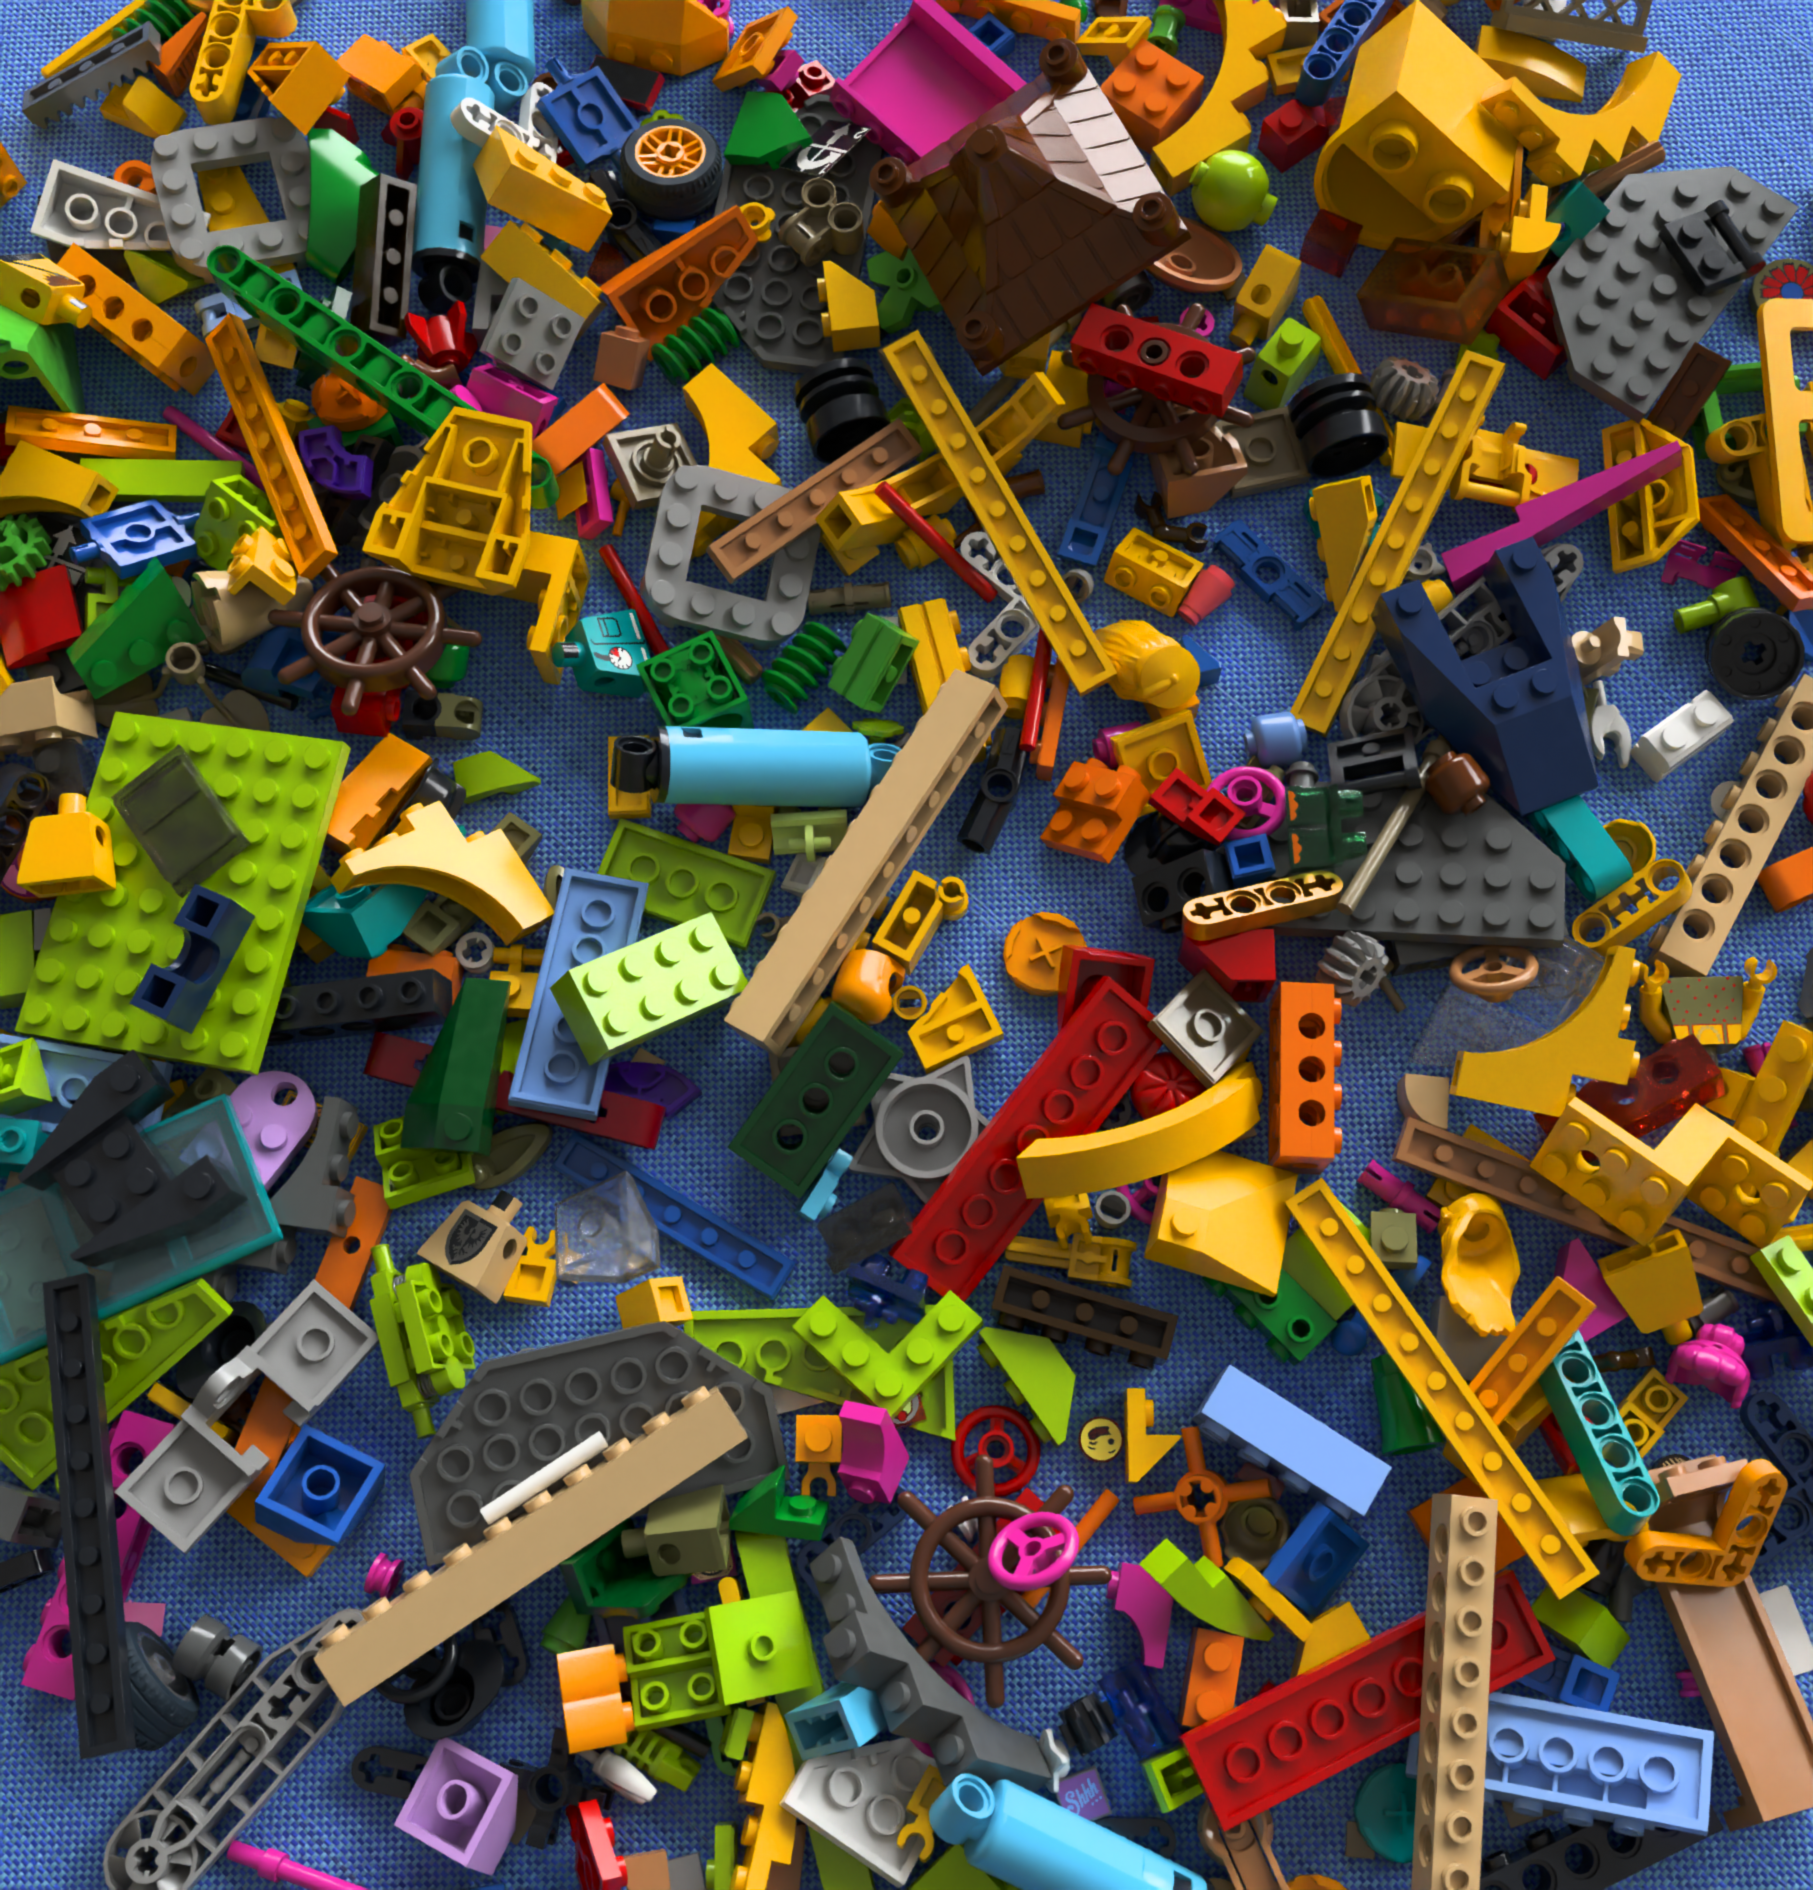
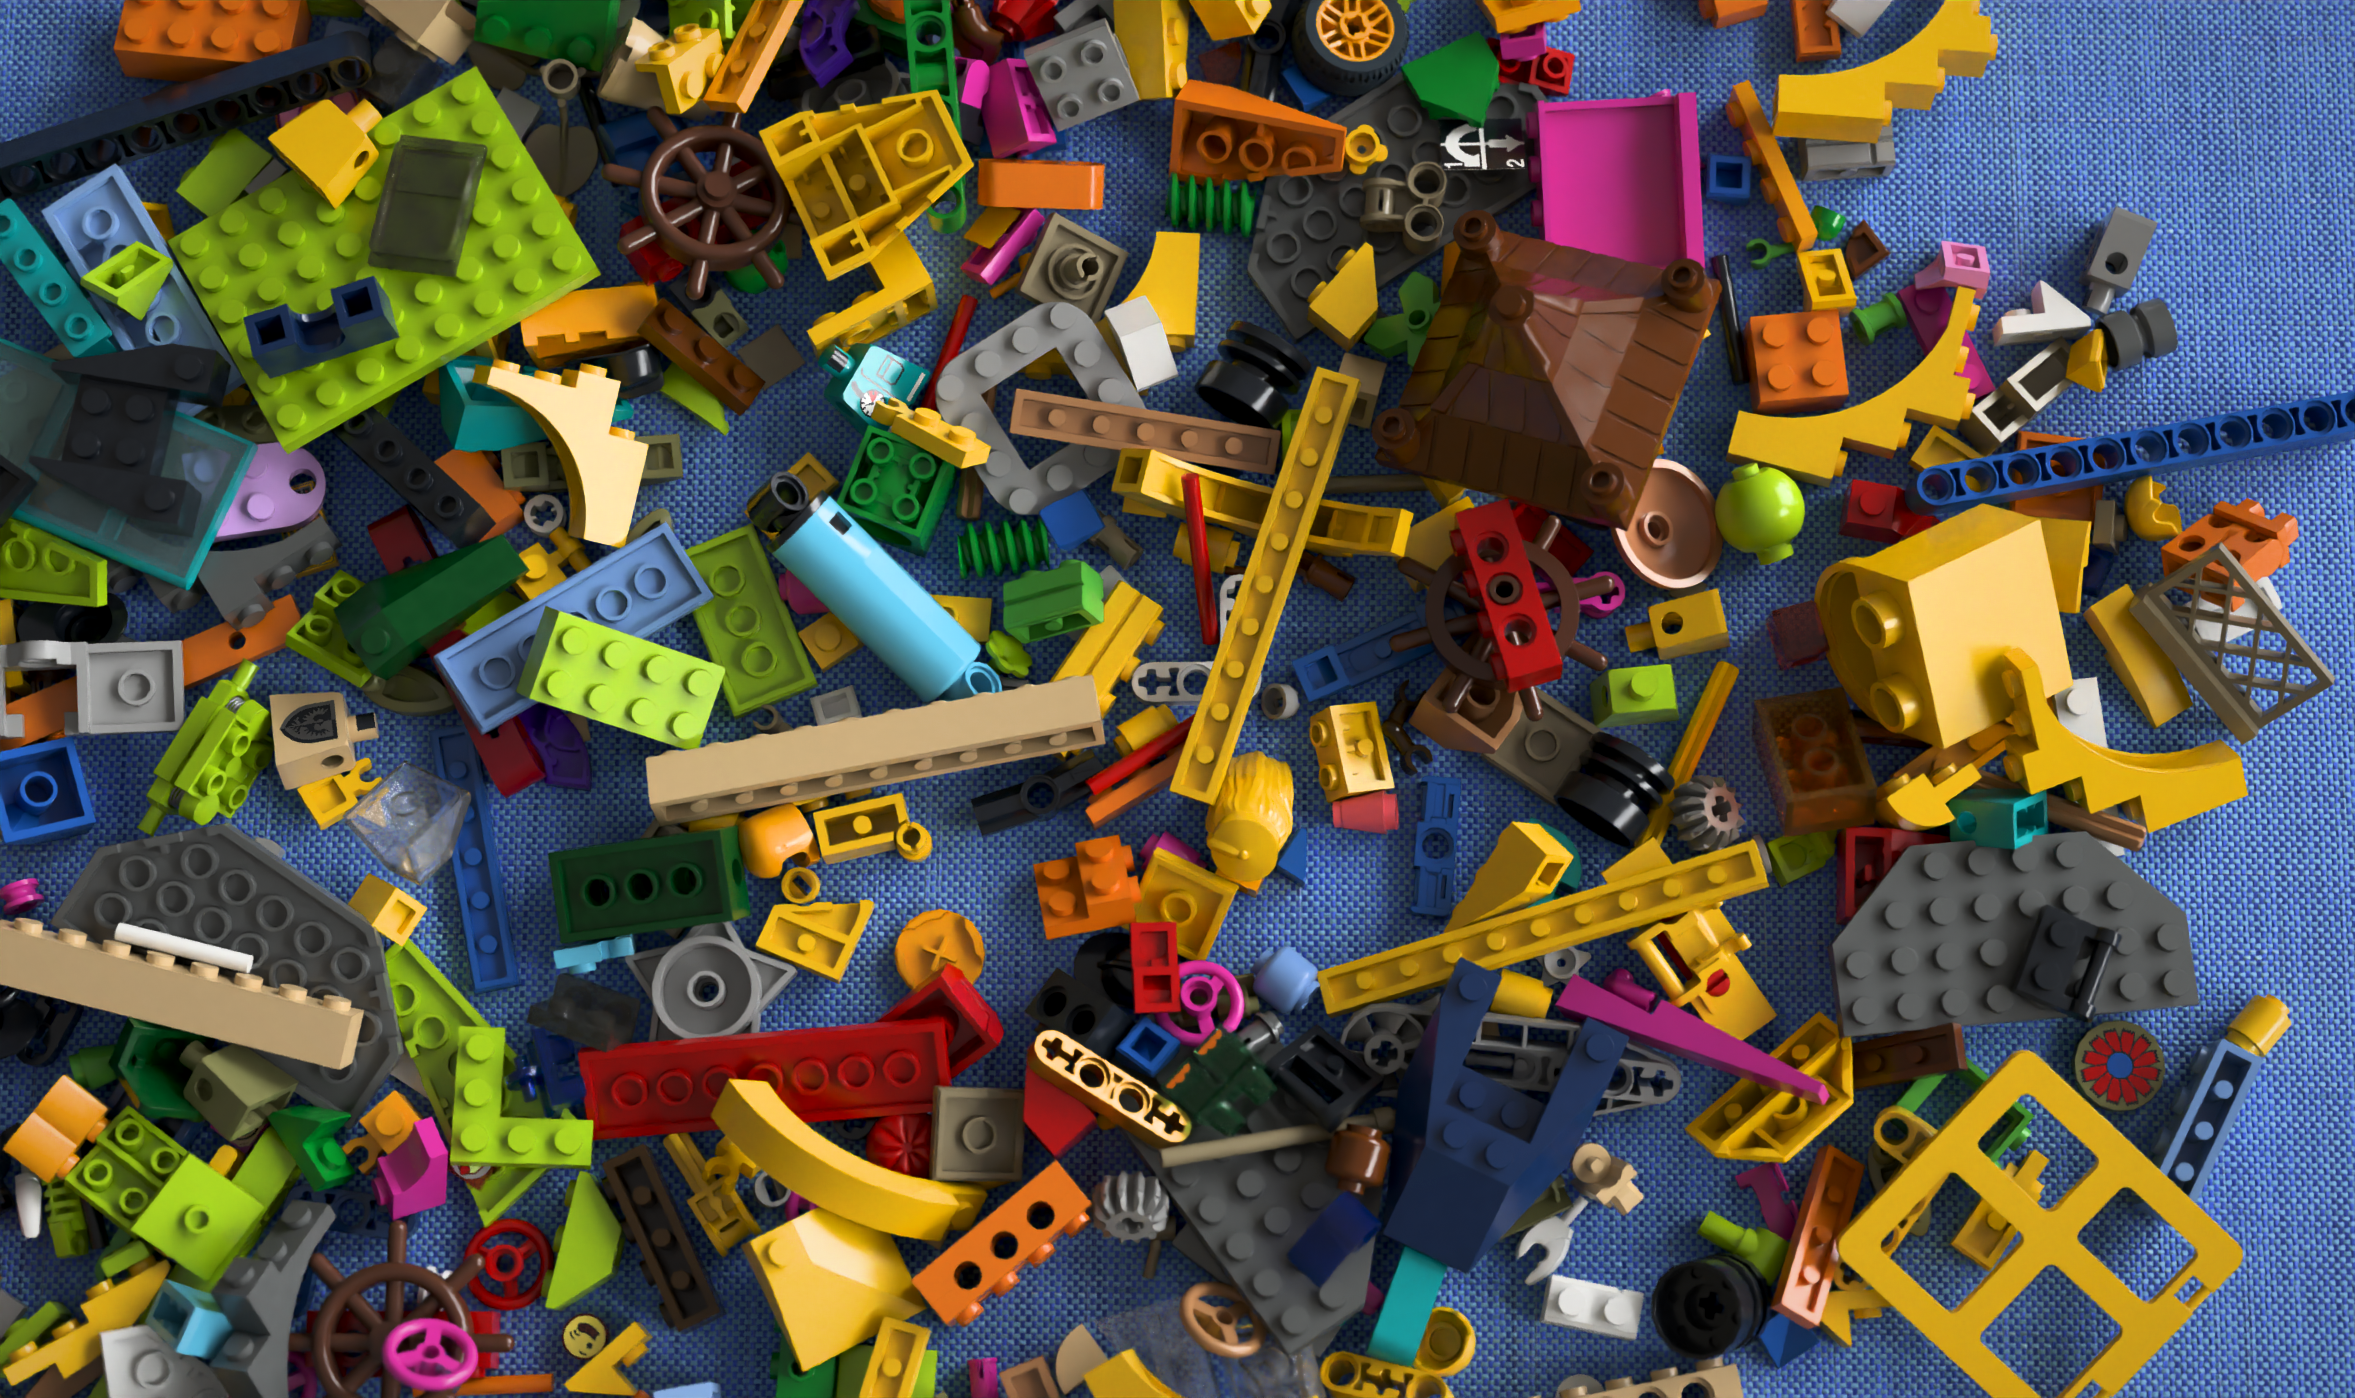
camera: 45 degrees right, 5 degrees up
(472, 744) = (701, 356): none -> reddish brown plate
(515, 710) = (771, 356): none -> dark tan sticker
(621, 358) = (1140, 158): nougat brick -> none
(676, 632) = (928, 431): none -> yellow plate
(750, 452) = (1142, 342): none -> white slope
(808, 831) = (867, 680): yellowish green hips -> none
(827, 603) = (1072, 520): none -> blue slope
(1468, 534) = (1622, 985): none -> dark pink arm
(1506, 843) = (1335, 1234): none -> clear blue panel

